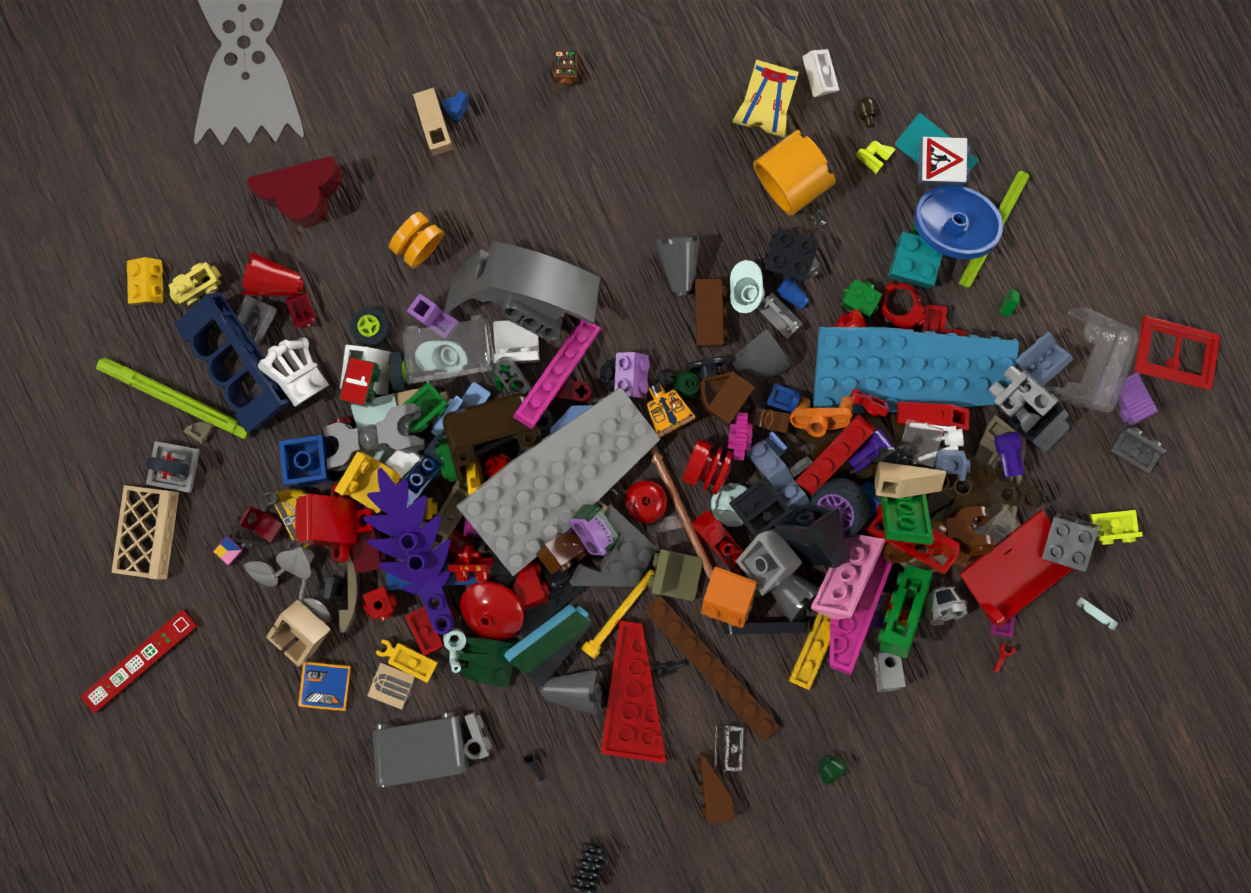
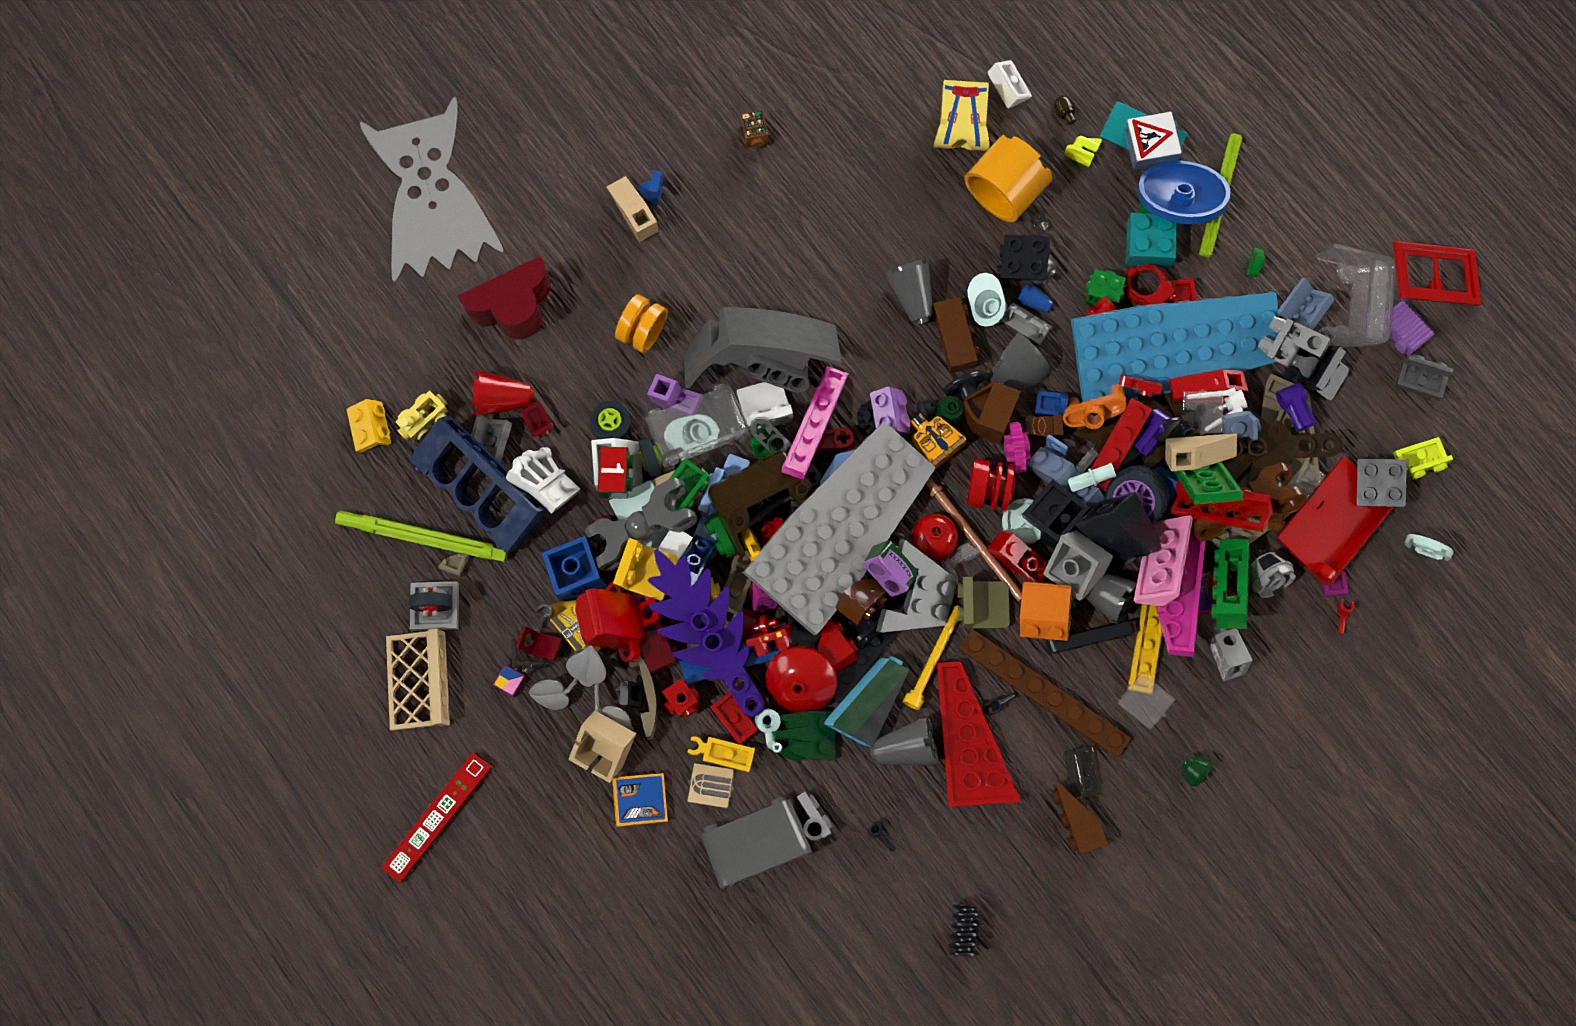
camera: 10 degrees left, 10 degrees down
(801, 483) = (1092, 477): none -> light aqua axle
(802, 696) = (1146, 701): none -> clear piece

